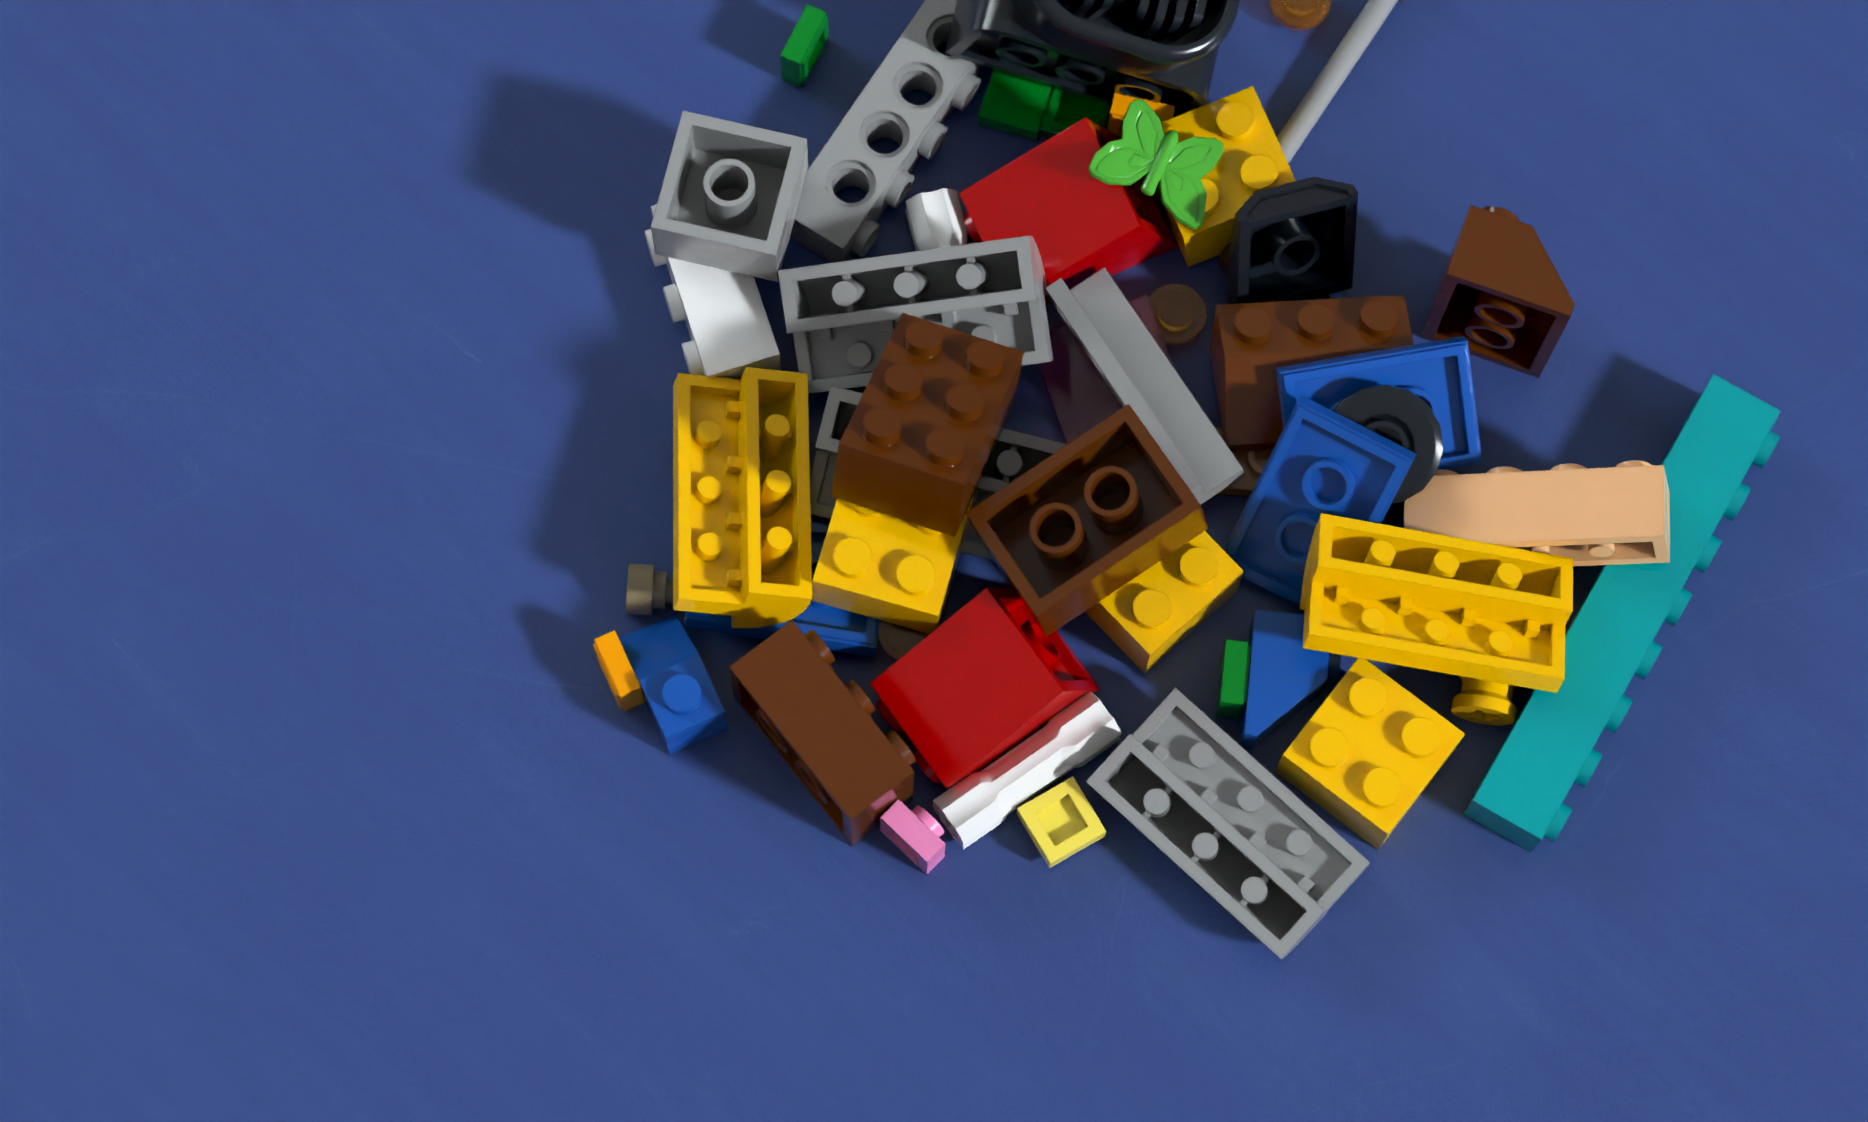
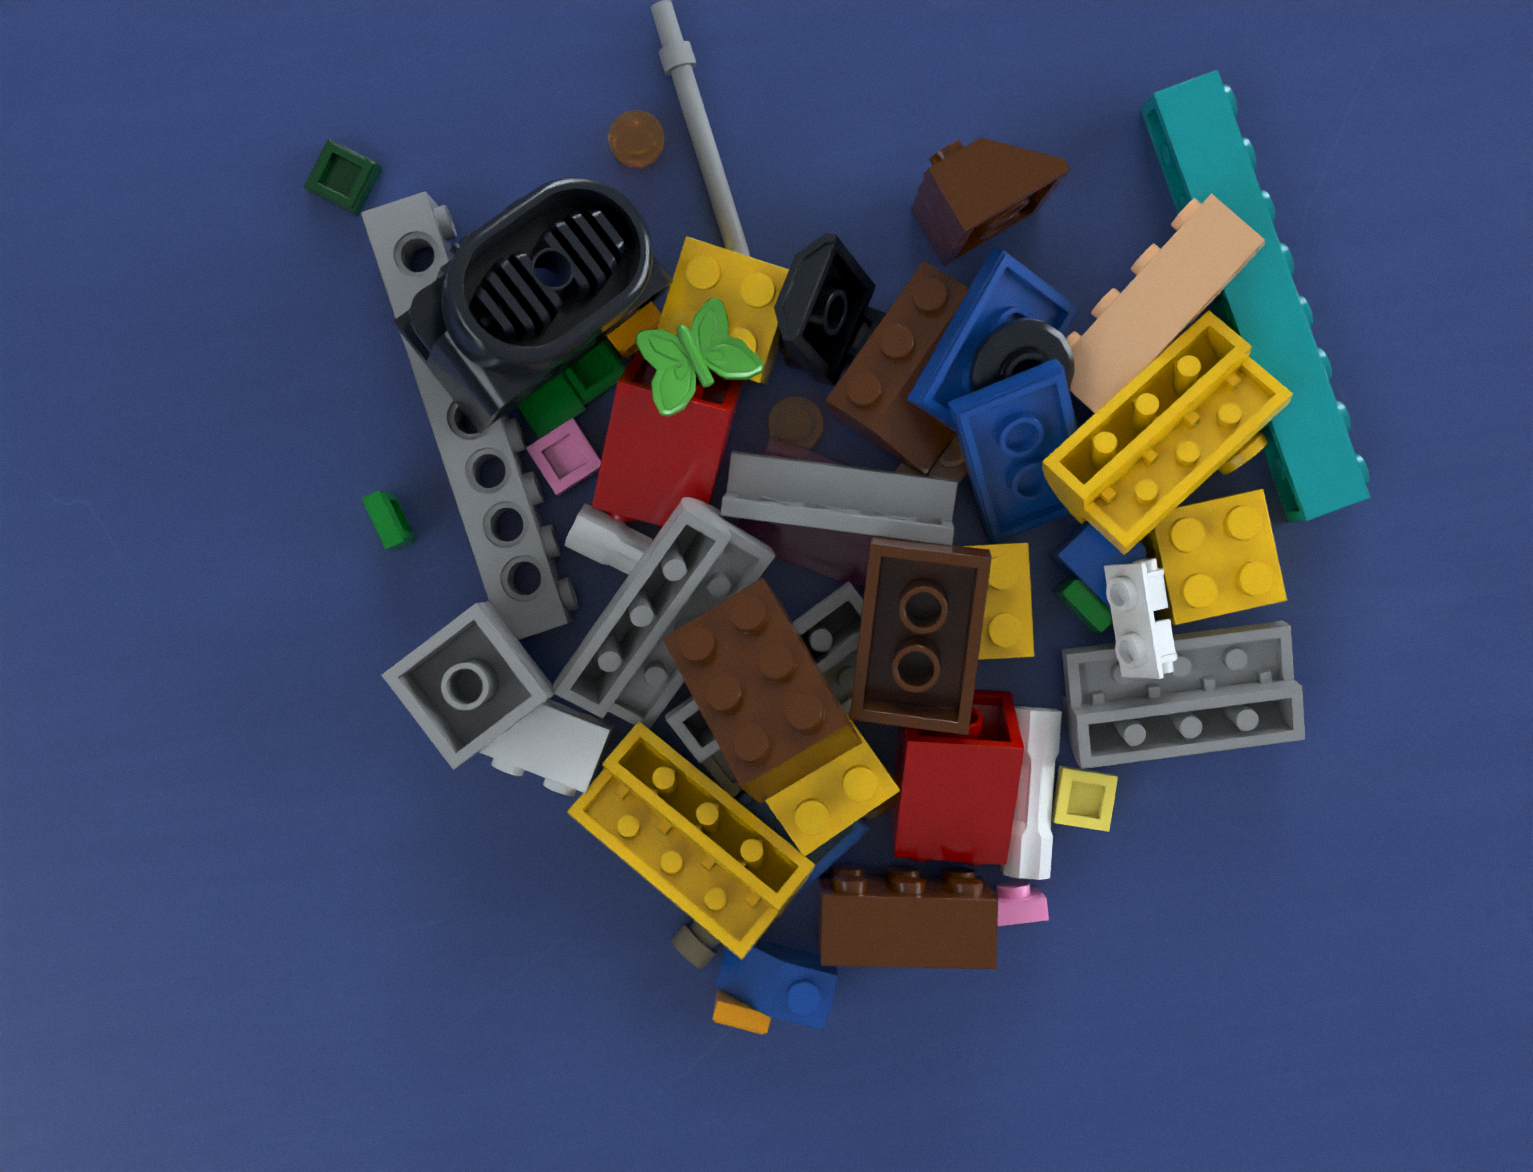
camera: 45 degrees left, 15 degrees up
(980, 144) = (565, 457): none -> bright pink plate
(1278, 693) = (1142, 644): none -> white hinge

